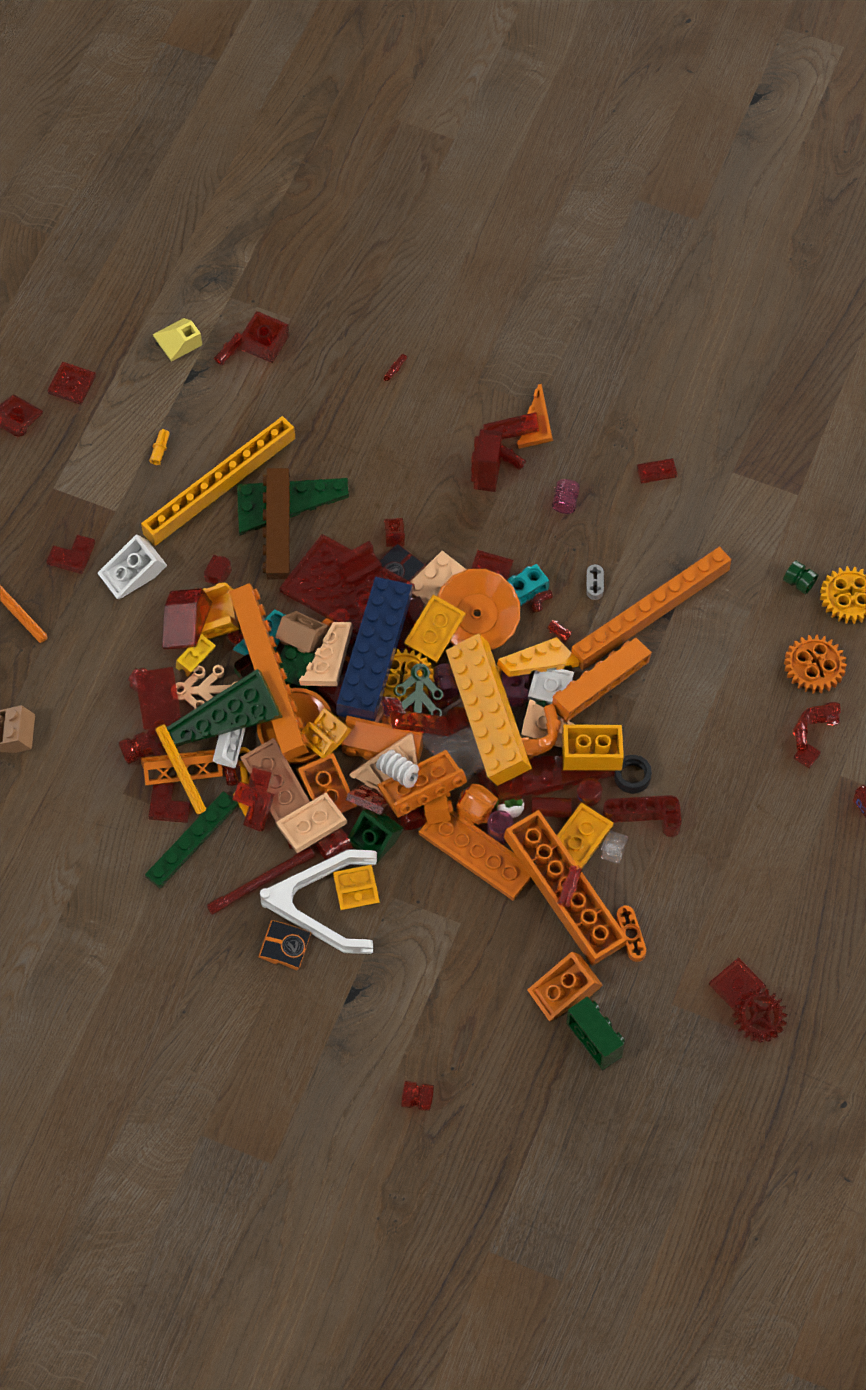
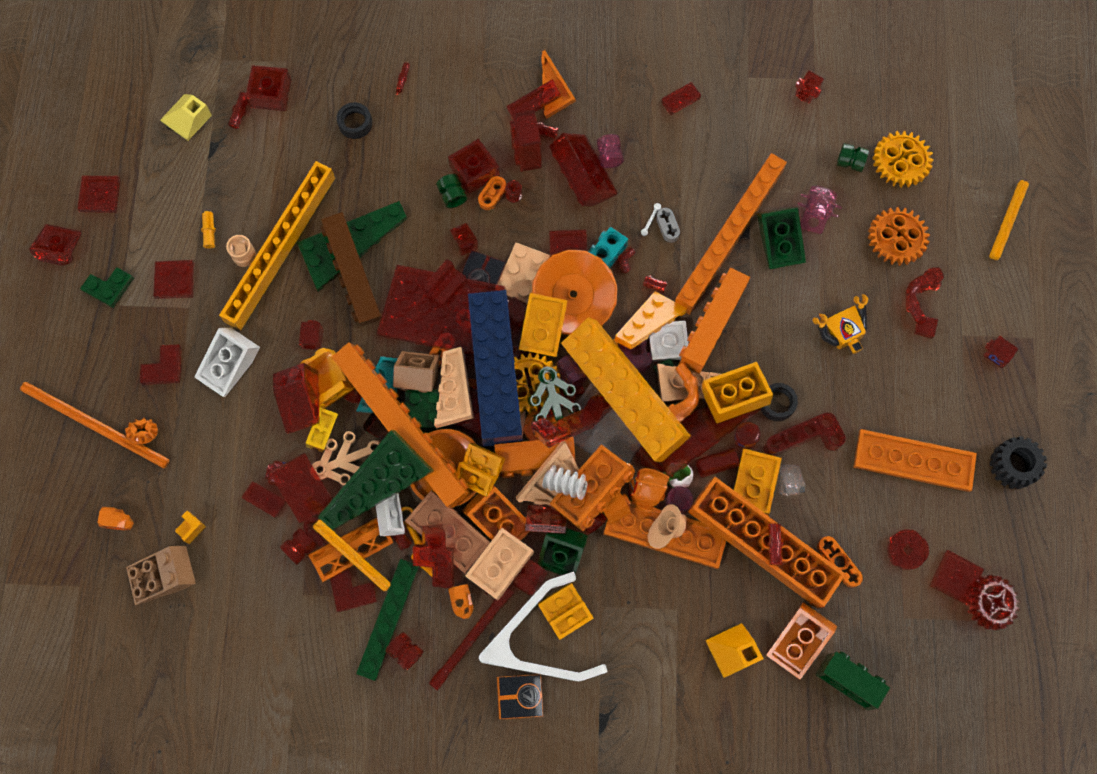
camera: 20 degrees left, 10 degrees up
(31, 607) = (143, 436): none -> orange gear
(45, 701) = (190, 527): none -> light orange panel
(47, 472) = (109, 291): none -> dark green plate
(111, 481) = (173, 279): none -> clear red plate
(119, 699) = (264, 499): none -> clear red plate
(182, 474) = (241, 250): none -> light nougat wheel
(195, 869) = (404, 651): none -> clear red wheel
(264, 845) = (461, 601): none -> orange rock
(330, 380) = (354, 133): none -> black tyre
(399, 484) = (451, 191): none -> dark green wheel
(429, 468) = (473, 165): none -> clear red brick
(437, 500) = (492, 194): none -> orange plate
(458, 504) = (512, 186): none -> clear red bush
(480, 843) = (667, 526): none -> light nougat piece
(497, 974) = (734, 650): none -> light orange slope
(533, 504) = (582, 169): none -> clear red slope
(569, 581) = (657, 207): none -> white hinge
(699, 628) = (782, 237): none -> dark green slope
(700, 955) = (899, 557): none -> clear red plate
(725, 728) = (845, 327): none -> torso
(742, 869) = (915, 460): none -> orange plate
(747, 609) = (819, 205): none -> clear pink piece
(785, 499) = (809, 87): none -> clear red brick
(842, 888) = (1028, 452): none -> black tyre

